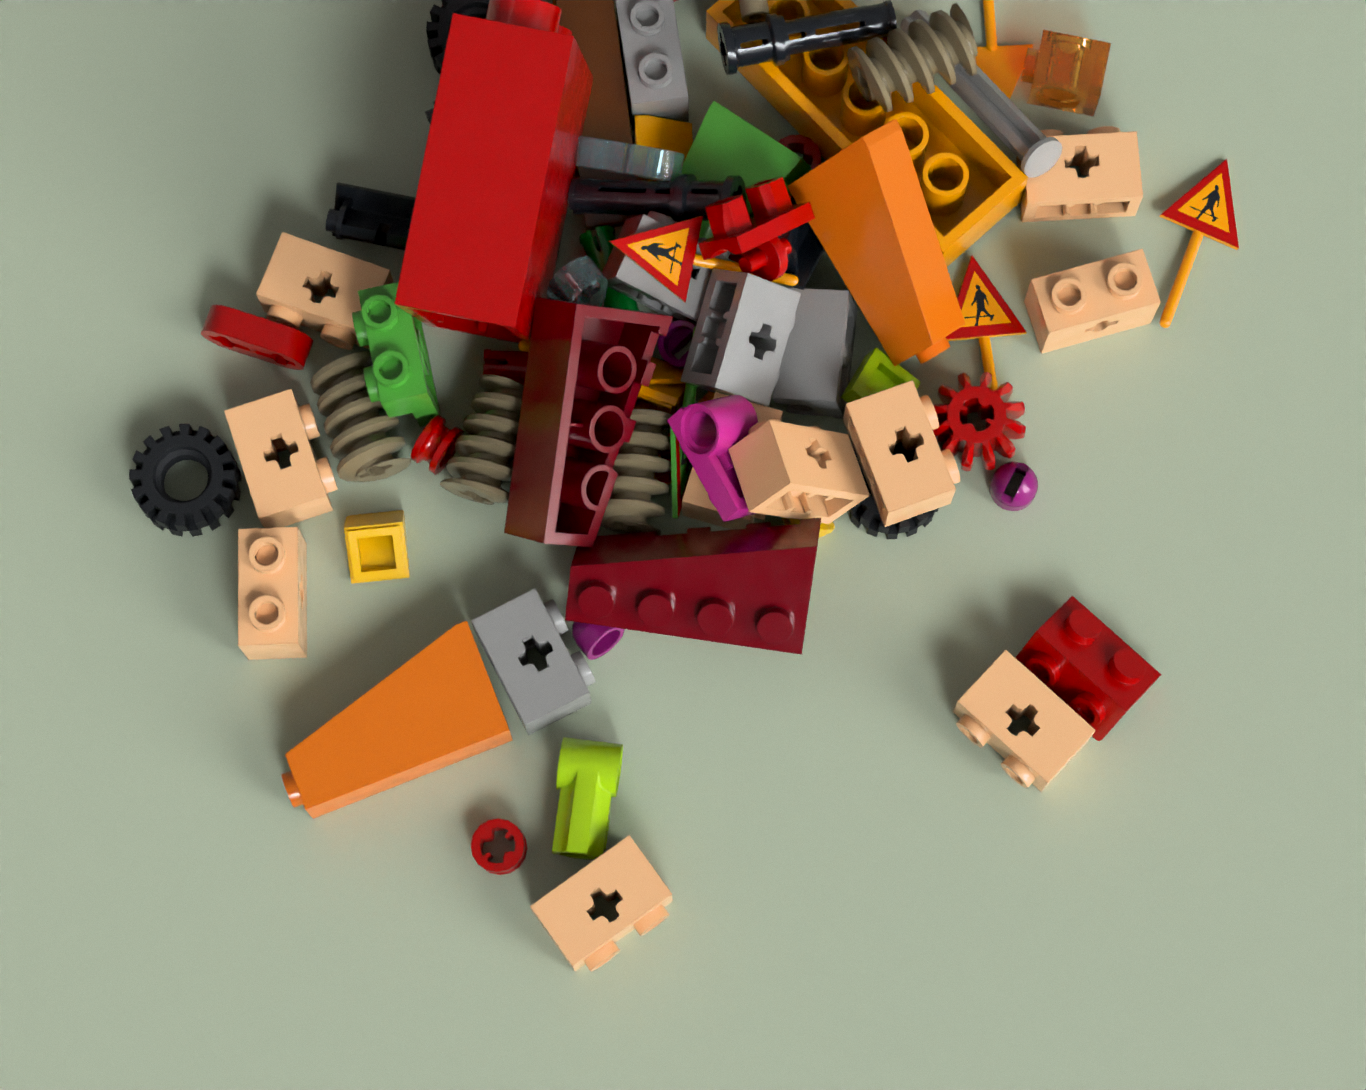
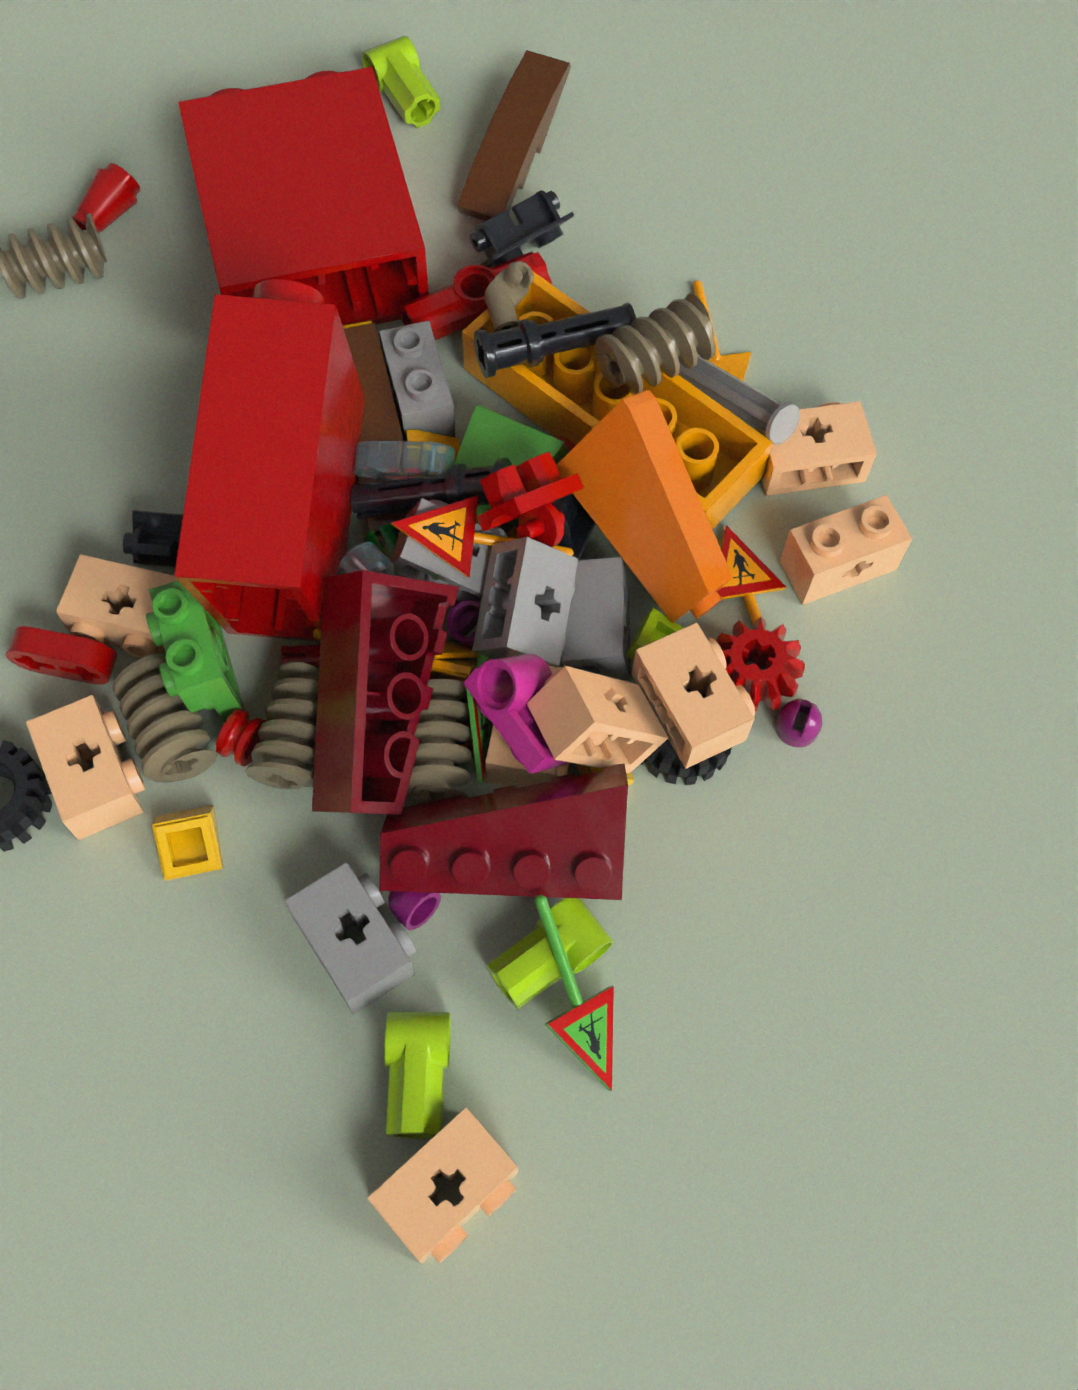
camera: 10 degrees left, 10 degrees down
(272, 593) = (80, 897): light nougat brick -> none
(404, 727) = (219, 1022): orange slope -> none
(486, 833) = (317, 1122): red bush -> none
(739, 689) = (530, 963): none -> lime piece
(756, 770) = (589, 1023): none -> piece
(1014, 691) = (880, 953): light nougat brick -> none
(1066, 72) = (787, 365): clear orange brick -> none
(1087, 666) = (899, 888): red bracket -> none
(1208, 213) = (930, 472): piece -> none

